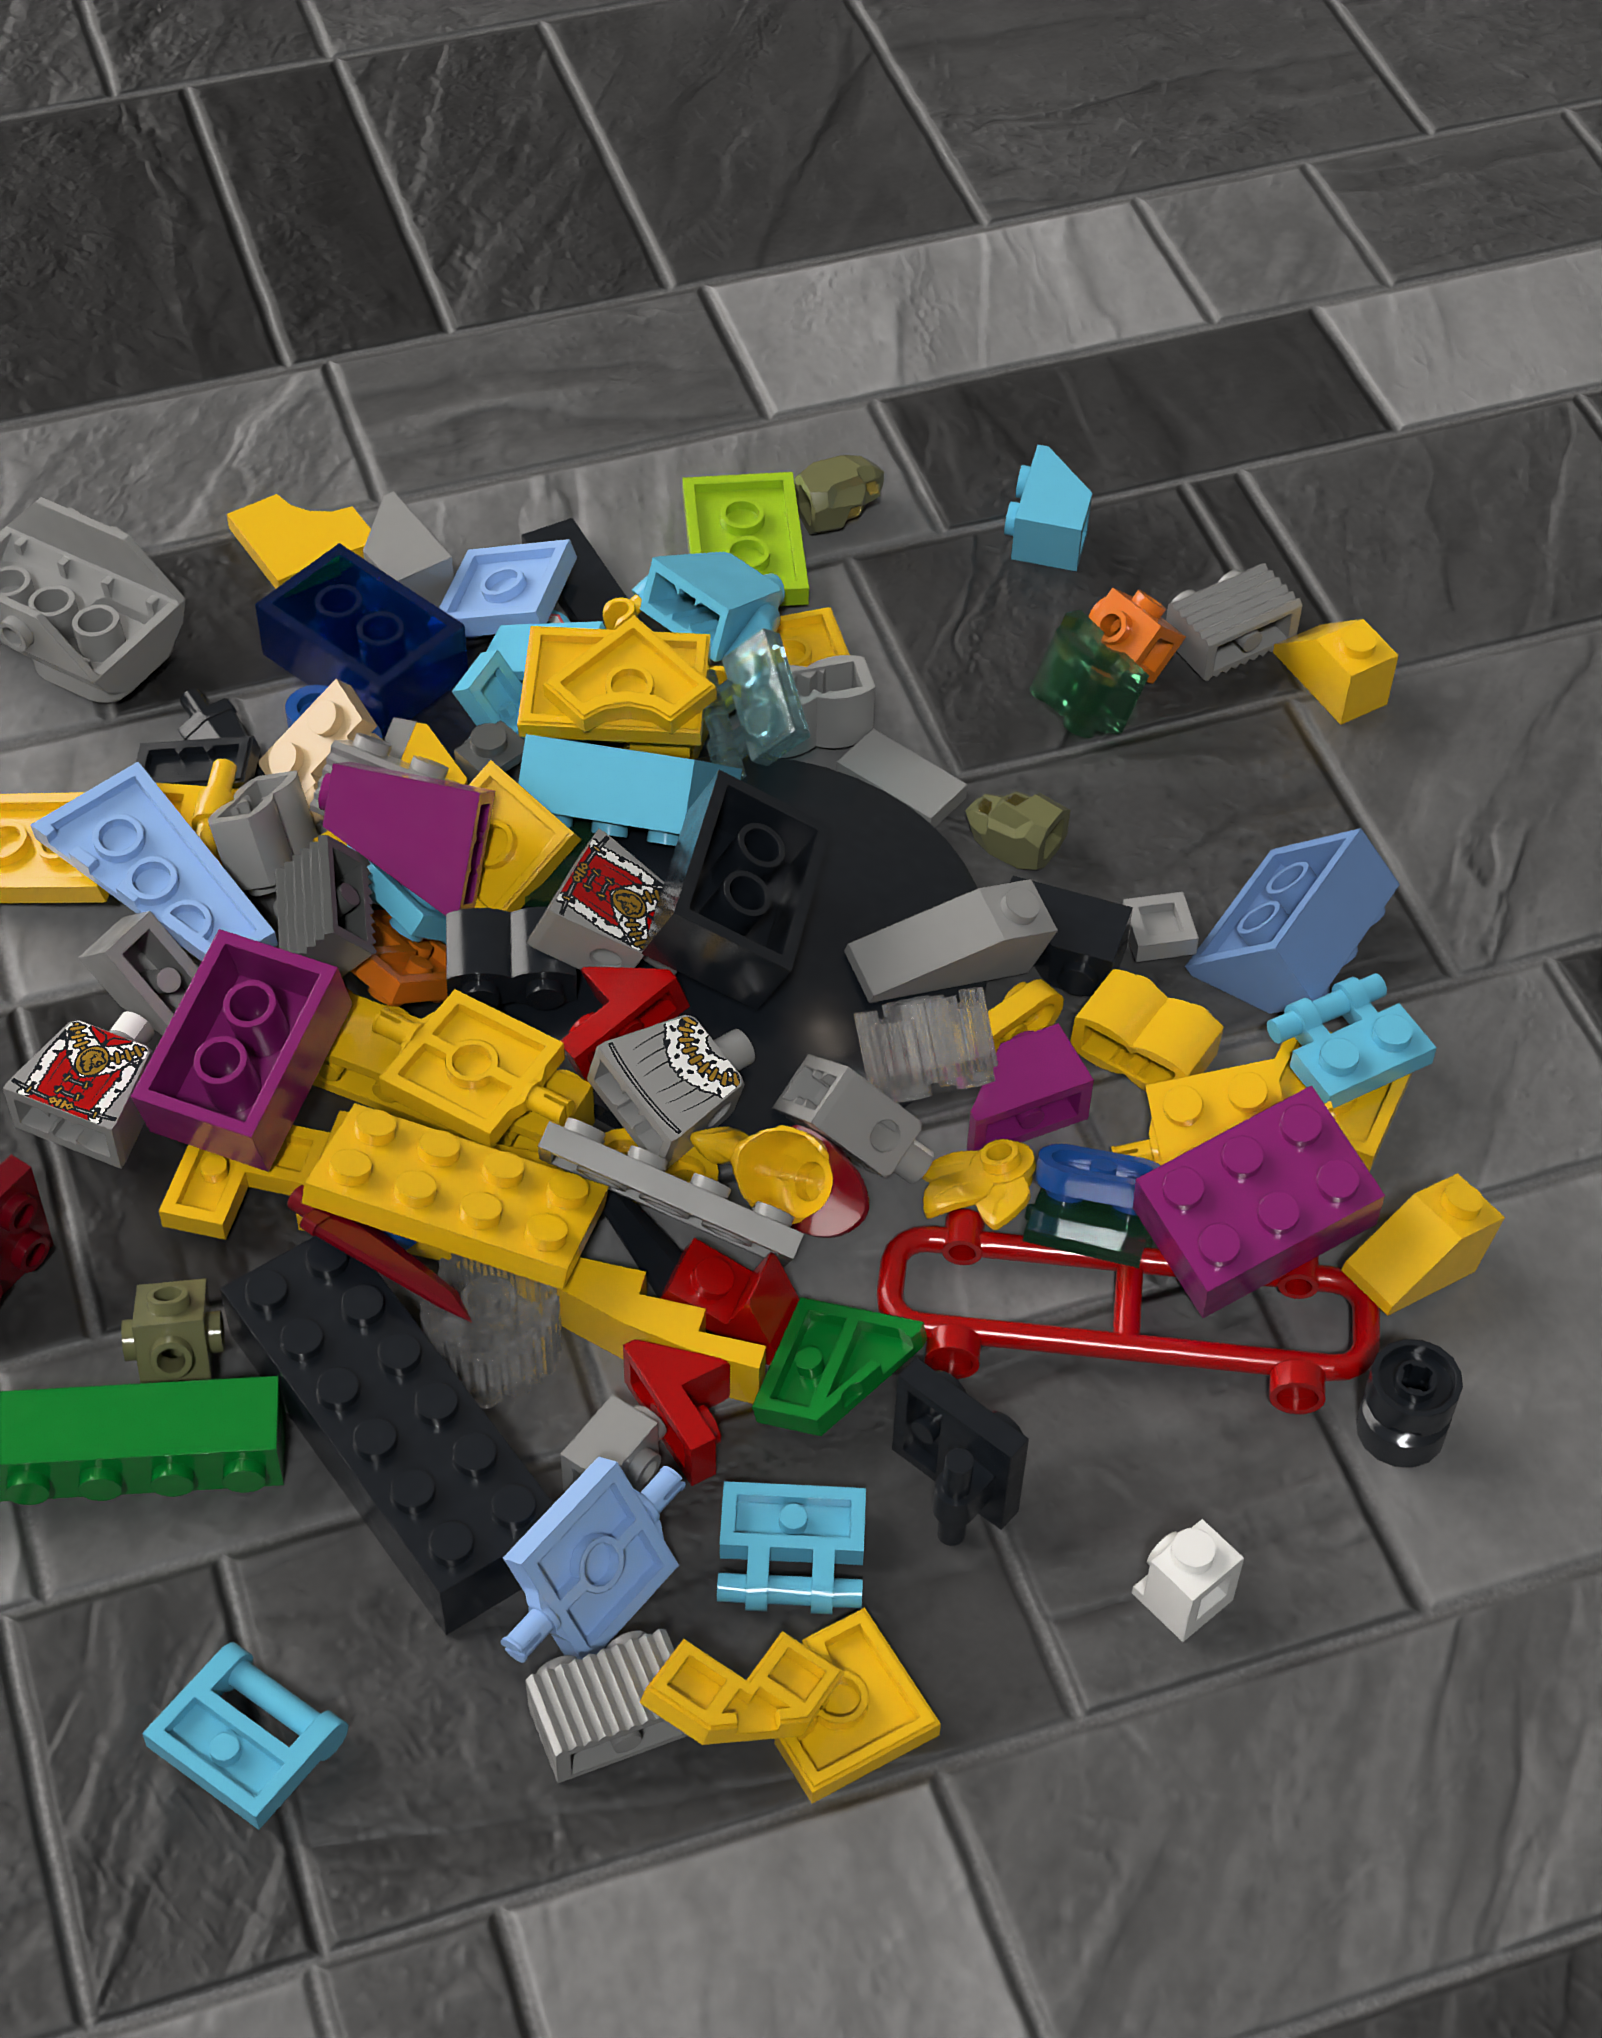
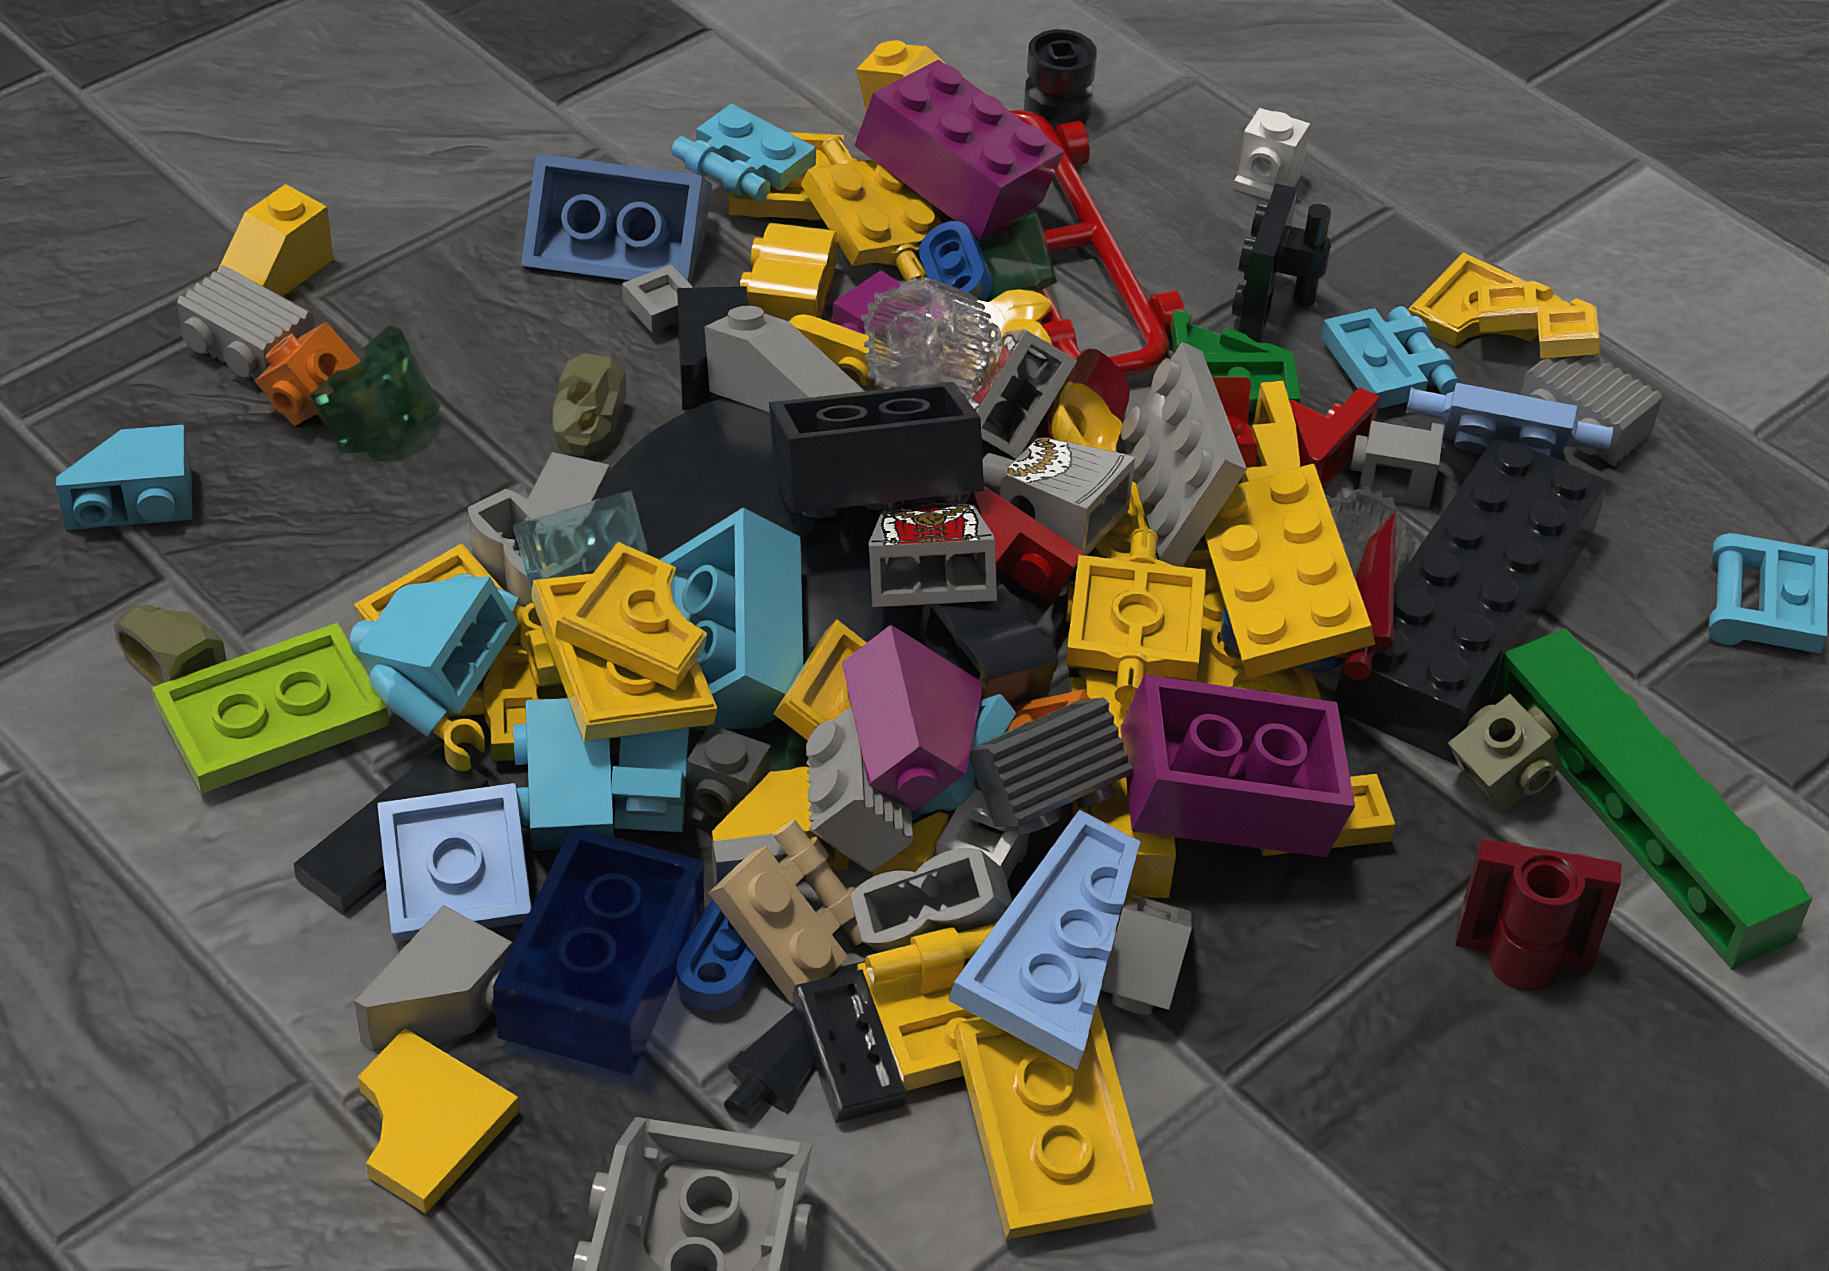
camera: 115 degrees left, 5 degrees down
(83, 1088) = (1298, 941): torso -> none

